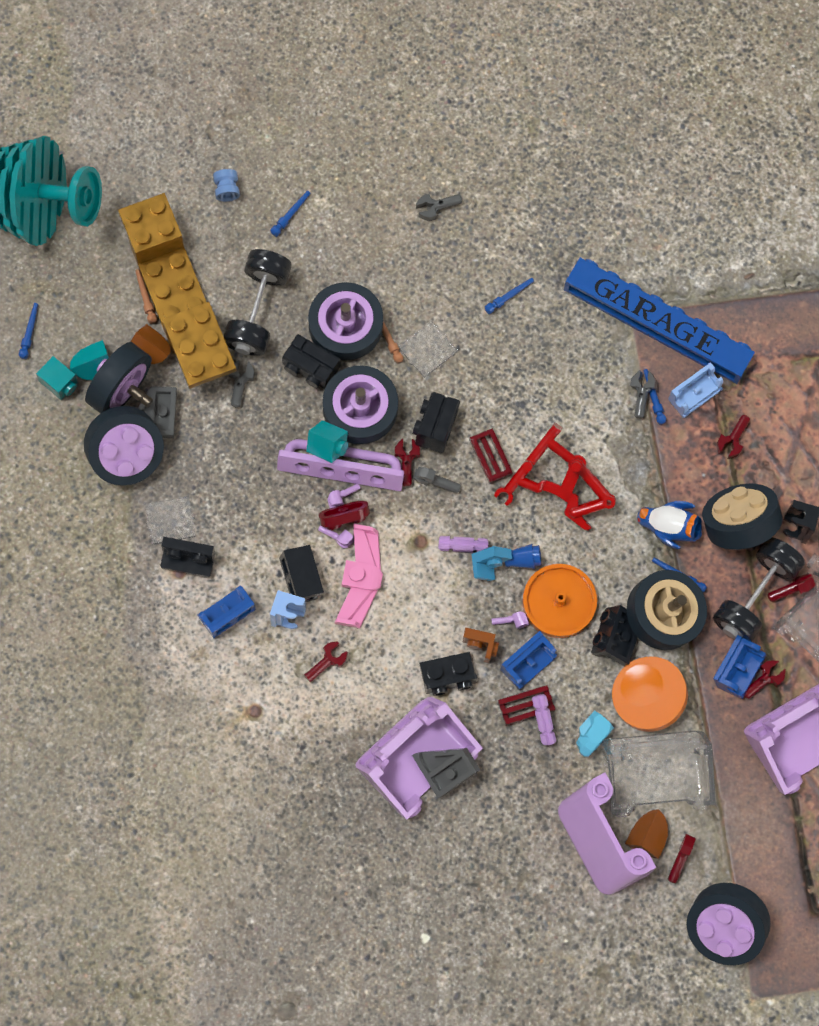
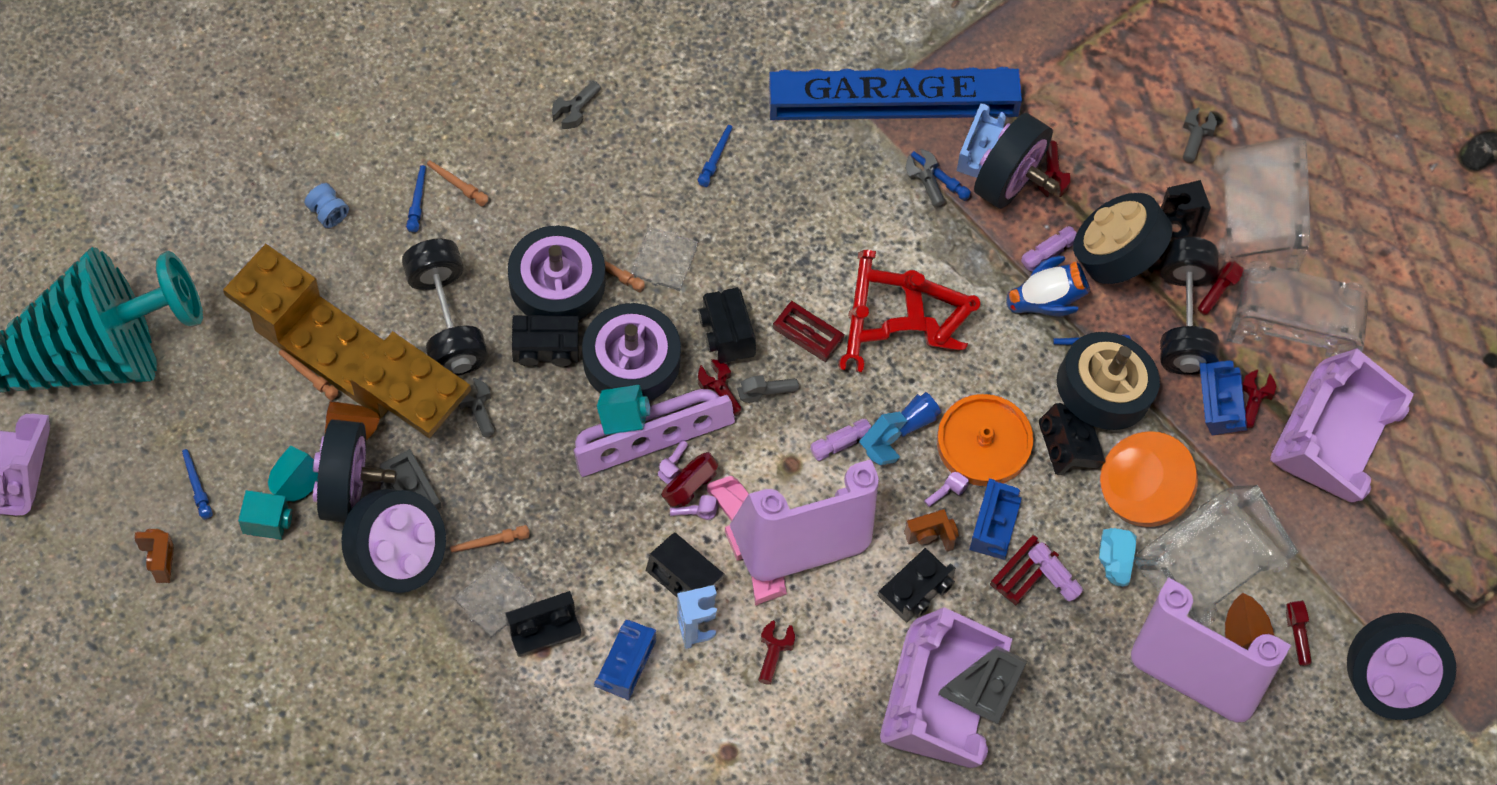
camera: 30 degrees left, 10 degrees down
(203, 482) = (506, 536): none -> nougat piece
(328, 226) = (468, 189): none -> nougat piece
(395, 602) = (788, 540): none -> lavender windscreen
(692, 492) = (1049, 248): none -> lavender axle
(703, 419) = (1015, 161): none -> black wheel

